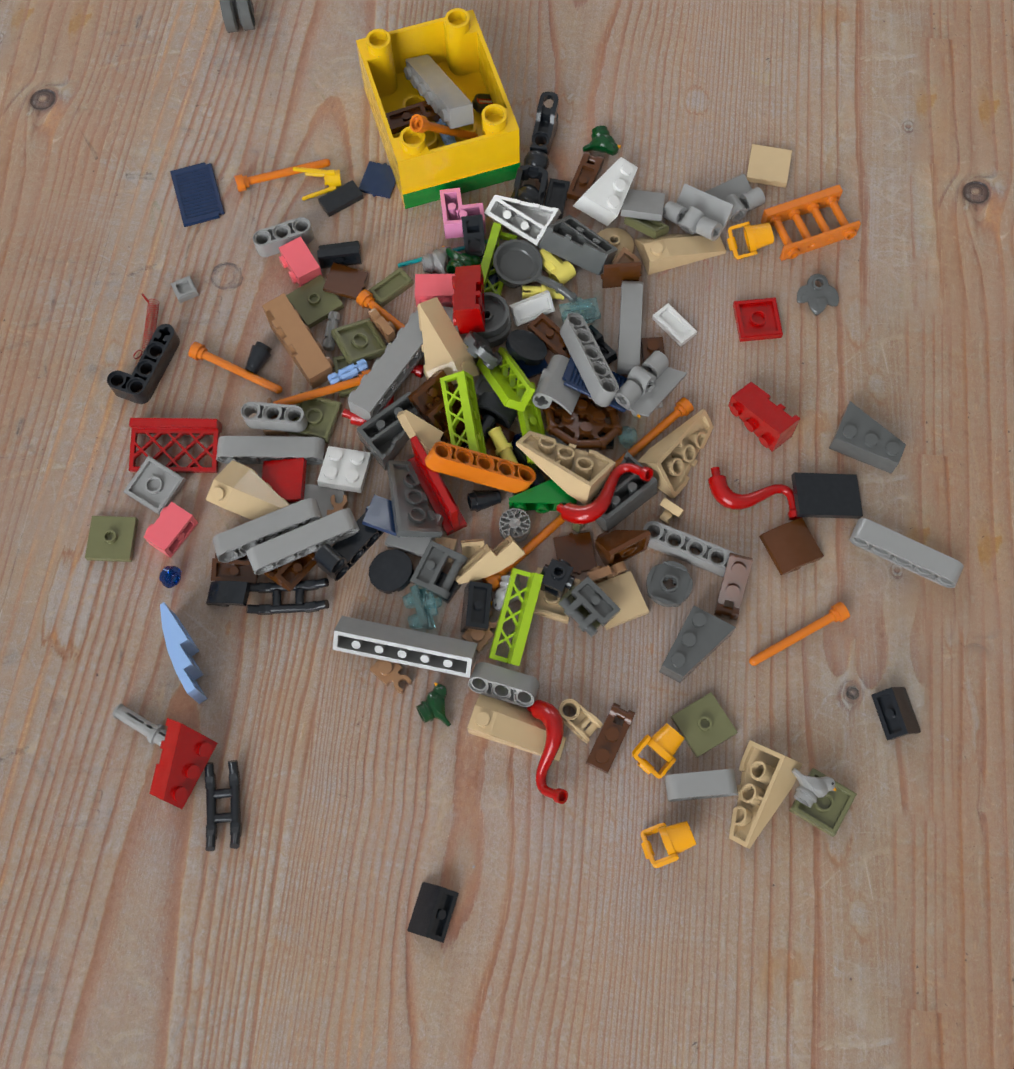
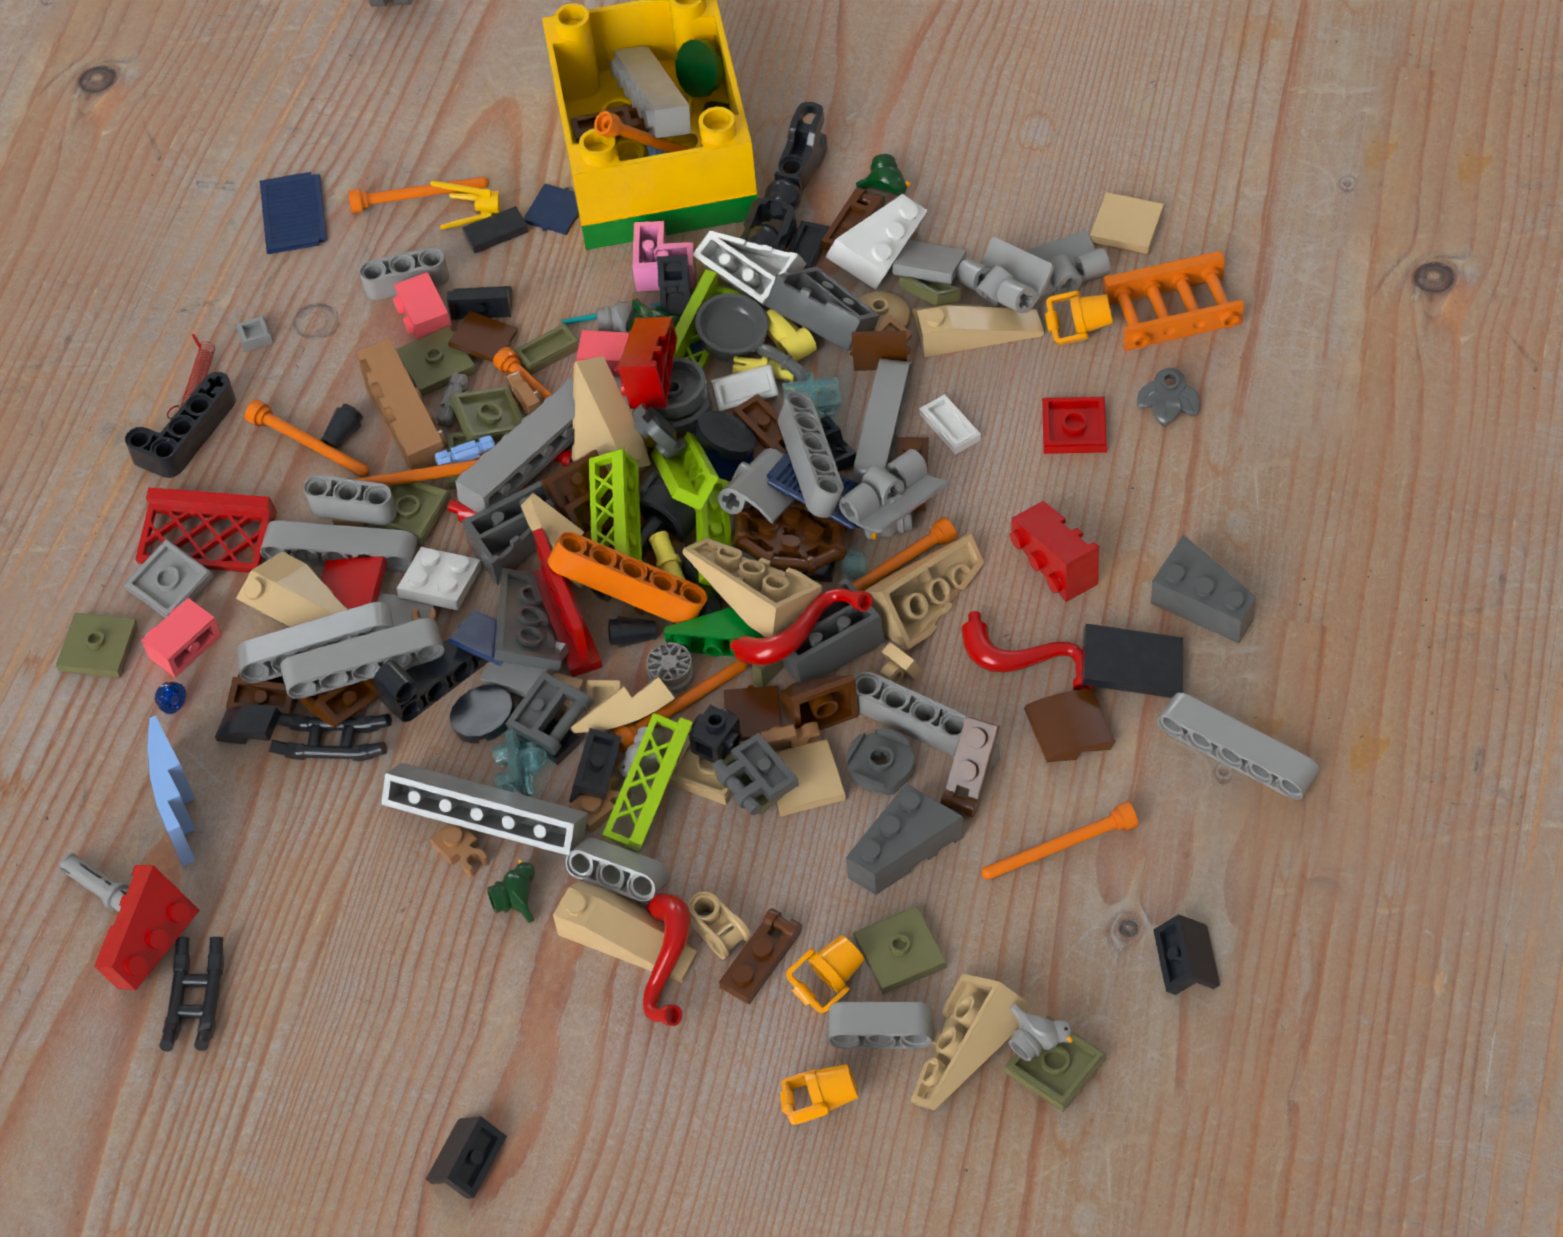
camera: 10 degrees right, 15 degrees down
(468, 70) = (699, 68): none -> dark green tile

